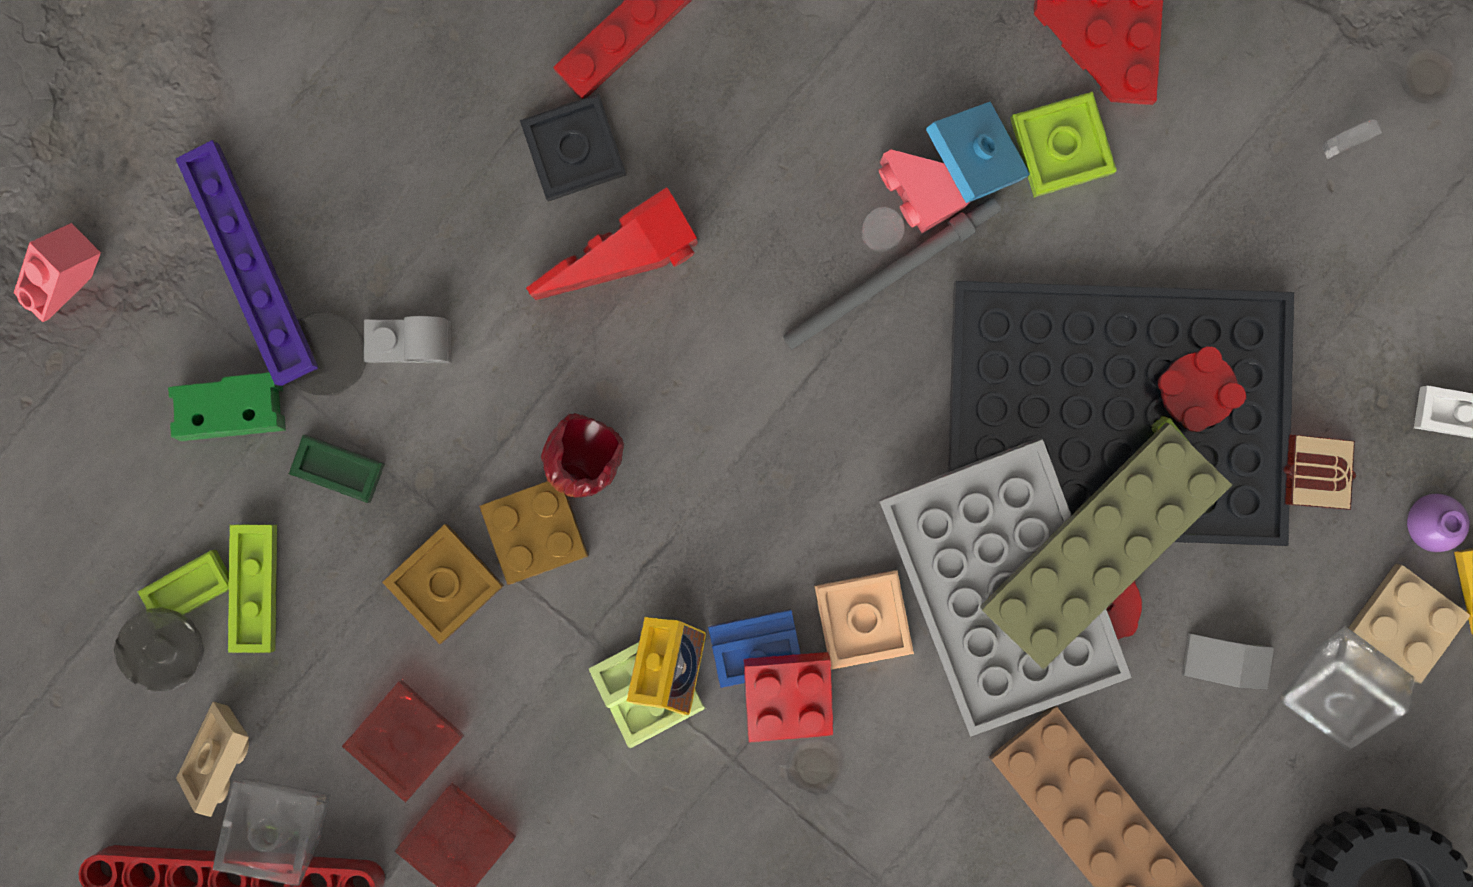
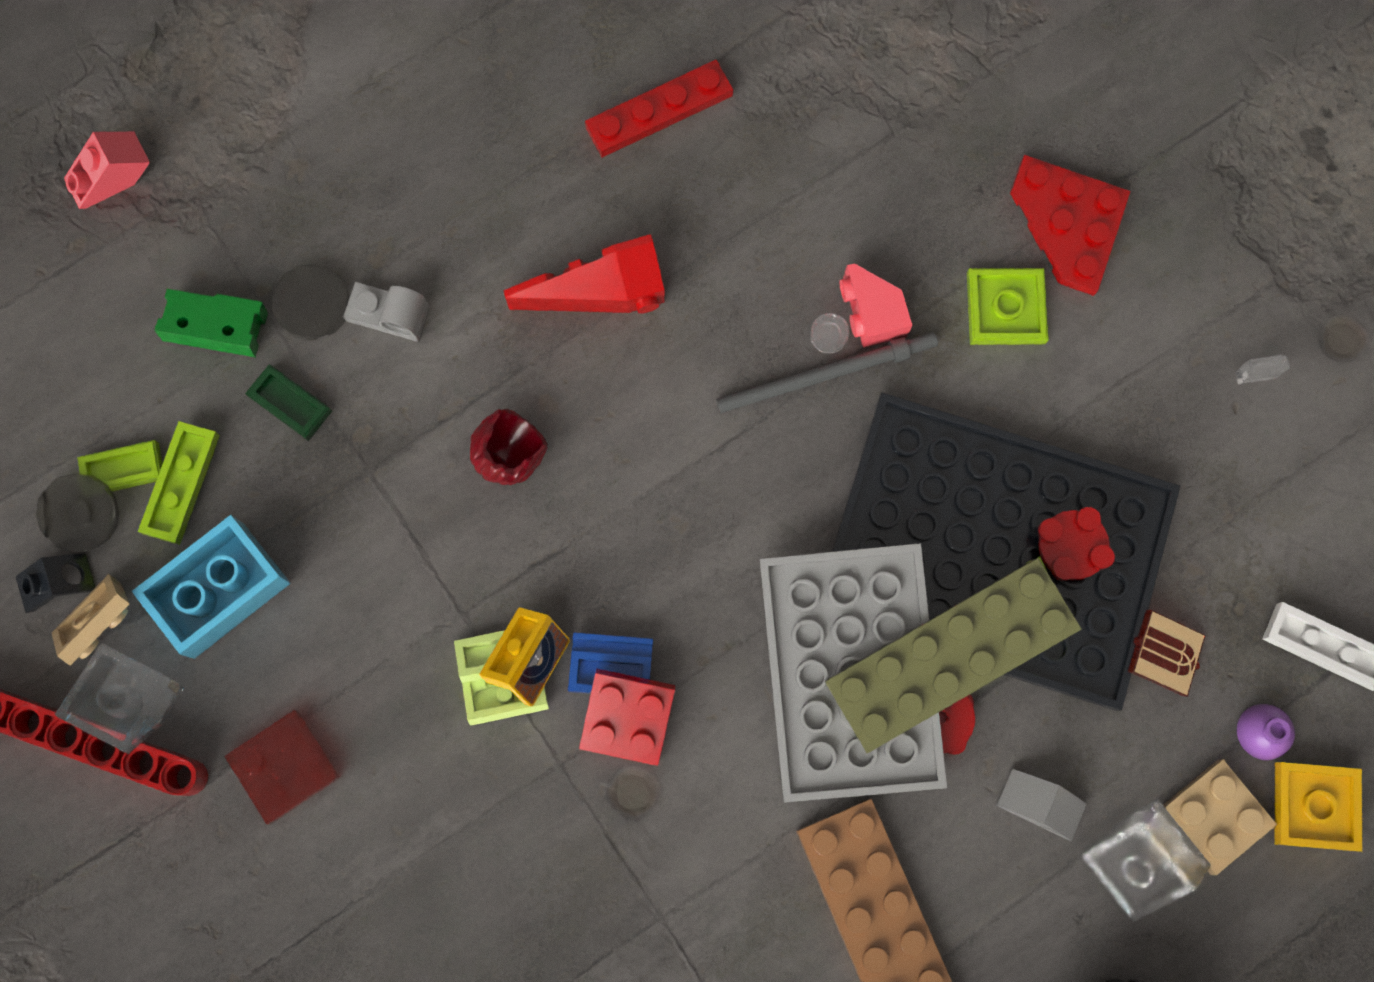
camera: 10 degrees right, 10 degrees down
(151, 732) = (45, 581): none -> black bracket
(246, 263) = (270, 207): dark purple plate -> none
(323, 689) = (211, 587): none -> medium azure brick
(403, 741) = (266, 657): clear red plate -> none
(443, 583) = (348, 527): pearl gold plate -> none
(533, 532) = (443, 506): pearl gold plate -> none
(573, 147) = (581, 192): black tile -> none
(864, 619) = (716, 669): light nougat tile -> none
(977, 151) = (930, 288): dark azure plate -> none

